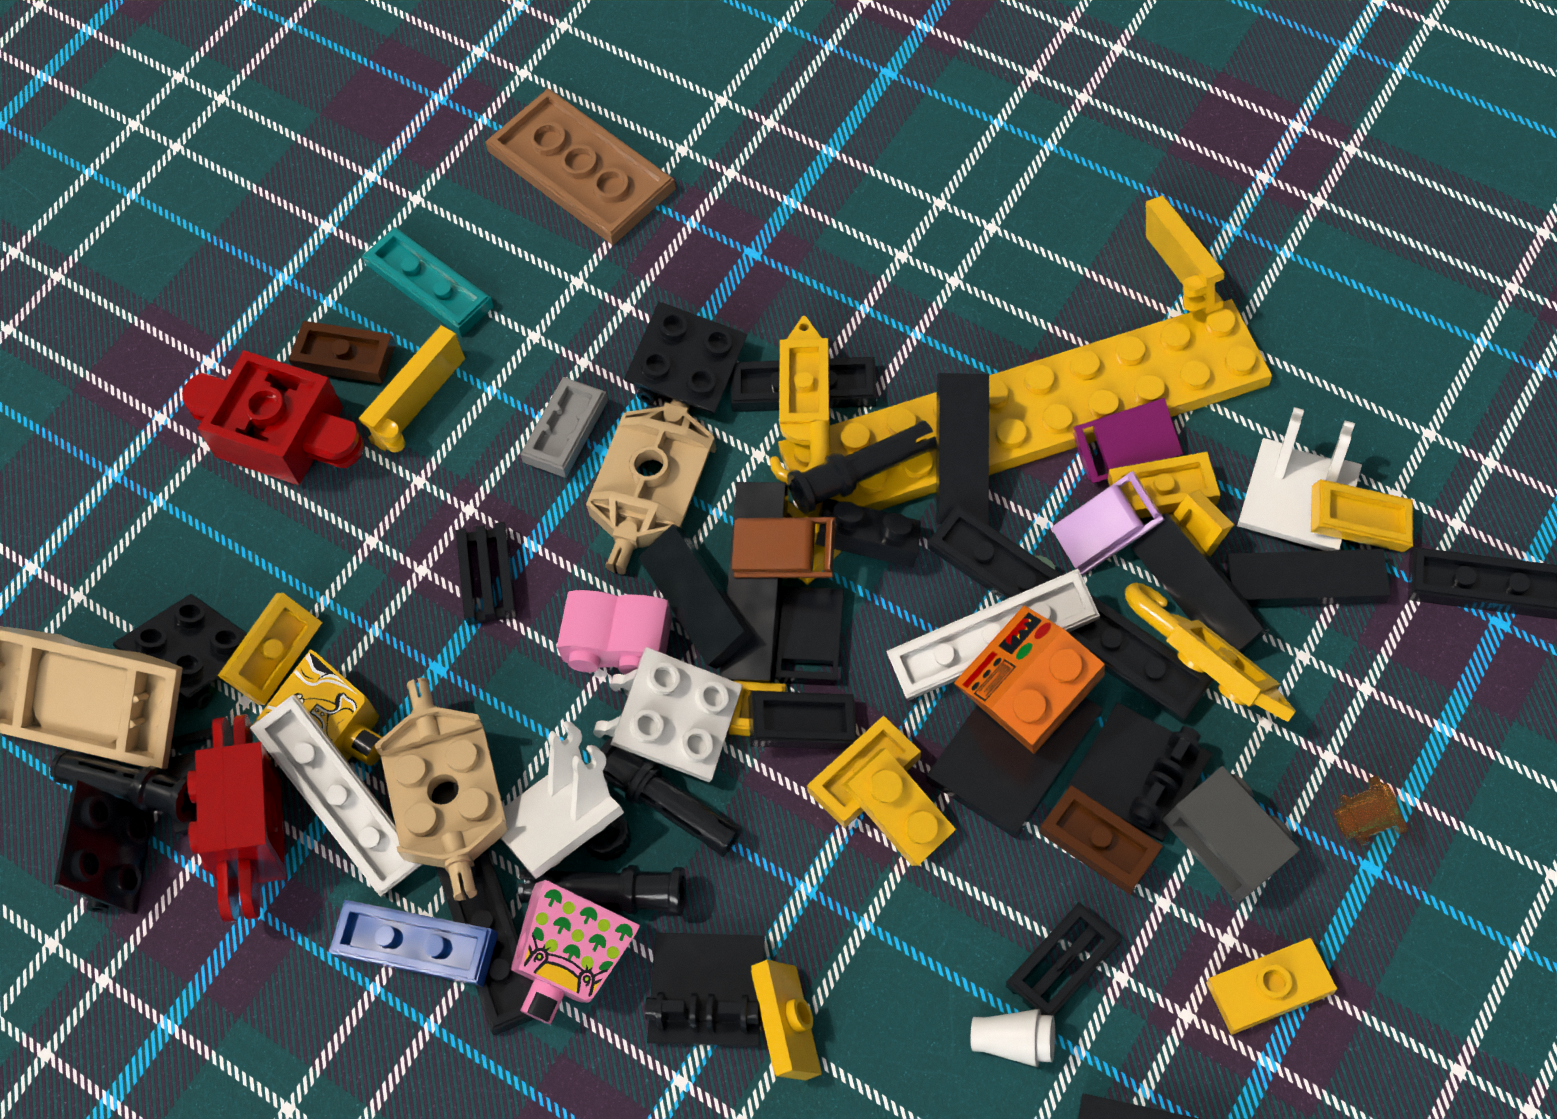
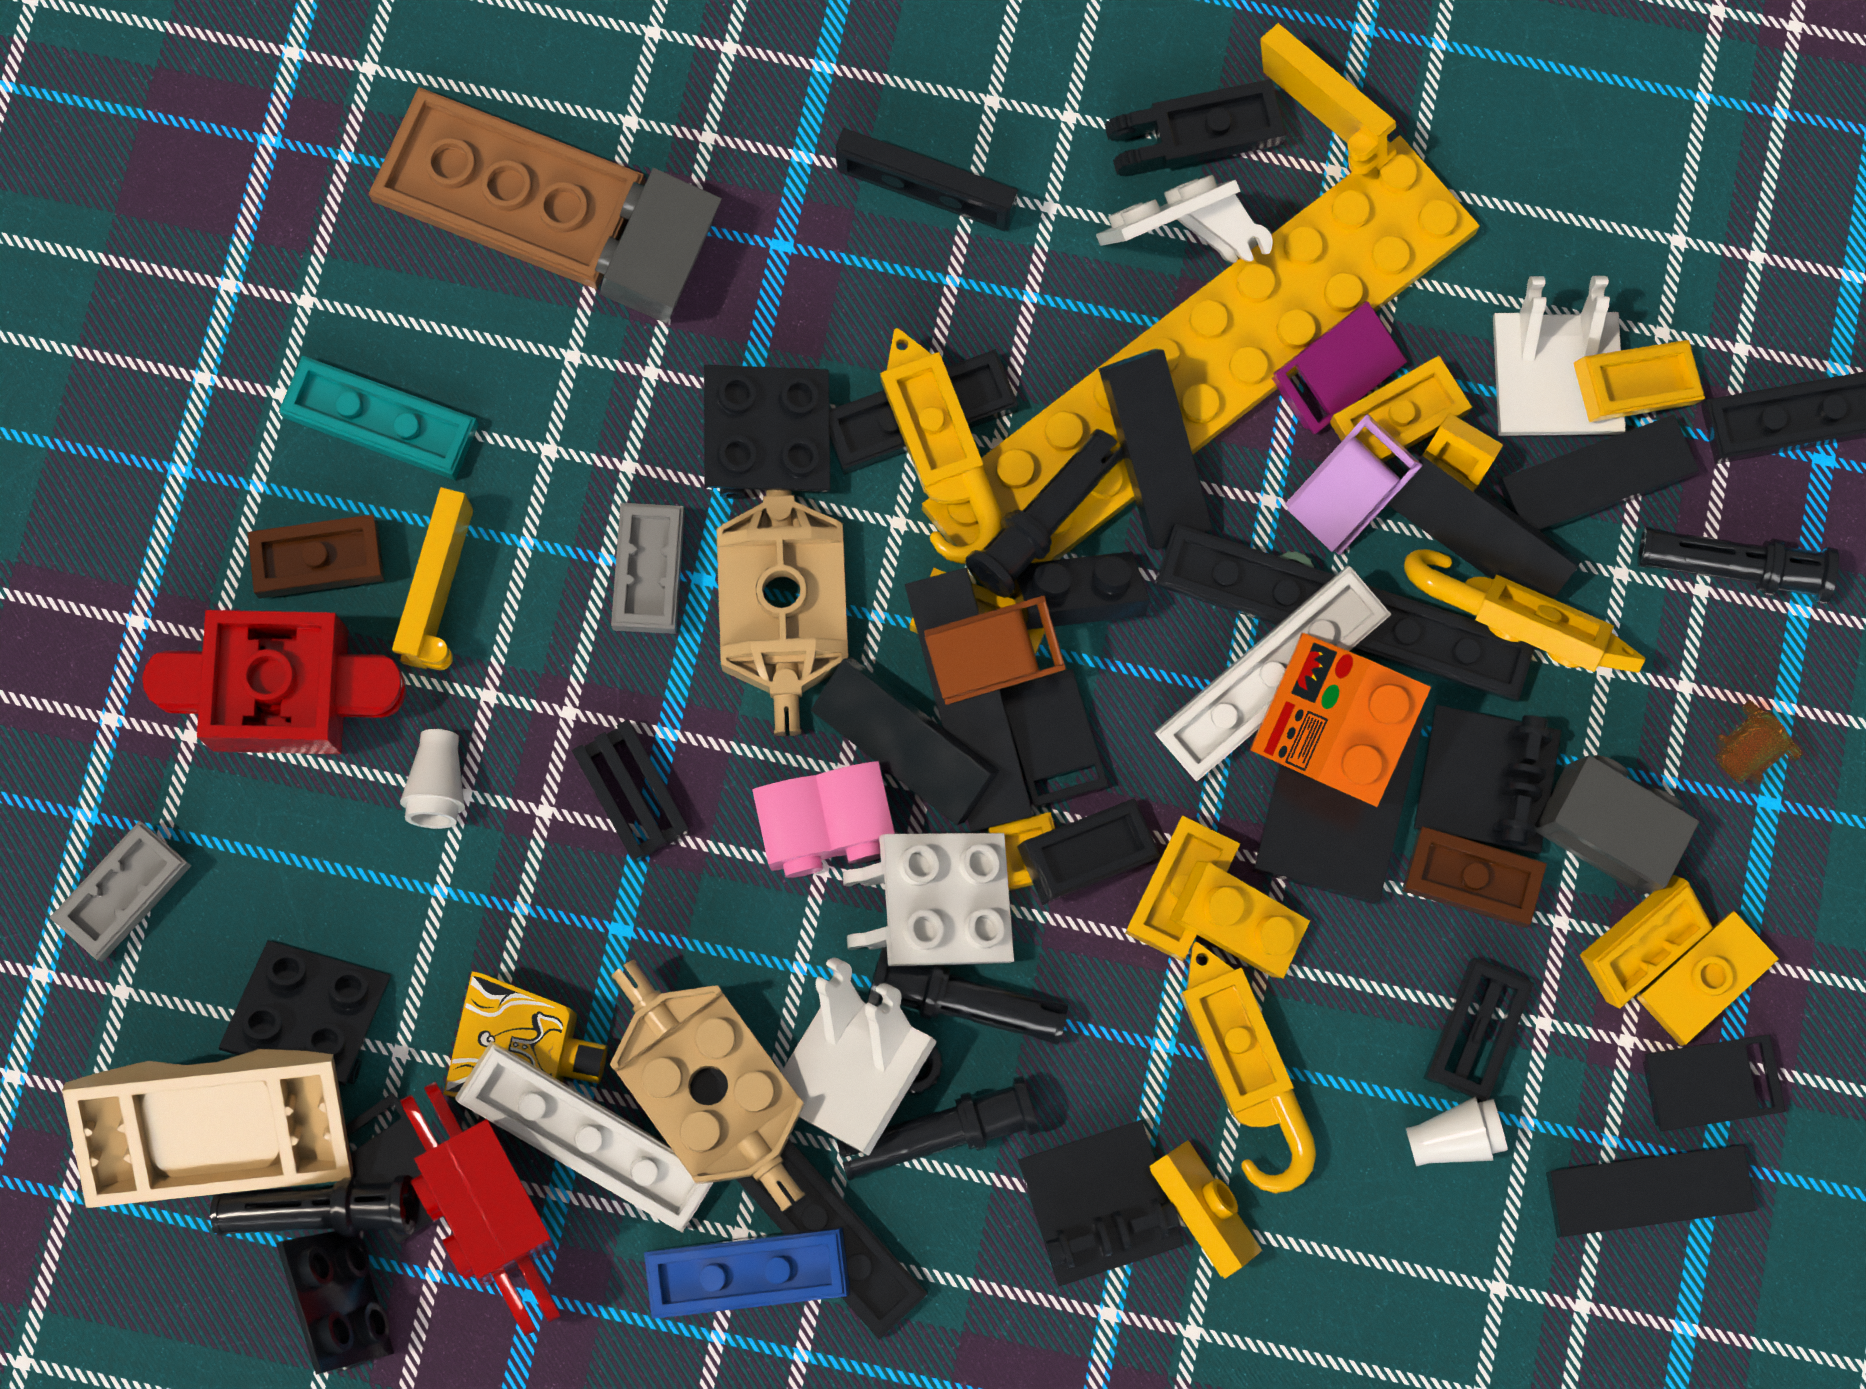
camera: 30 degrees left, 15 degrees up
(106, 526) = (120, 891): none -> light grey plate
(270, 649) = (411, 981): yellow plate -> none
(350, 522) = (434, 783): none -> white cone
(567, 948) = (933, 1220): torso -> none
(662, 222) = (658, 245): none -> dark grey piece
(863, 922) = (1247, 1064): none -> yellow plate
(869, 233) = (926, 180): none -> black tile
(1056, 293) = (1202, 207): none -> white plate
(1079, 254) = (1200, 128): none -> black hinge
(1227, 936) = (1646, 941): none -> yellow plate
(1245, 1072) = (1709, 1084): none -> black piece
(1425, 682) = (1768, 566): none -> black pin

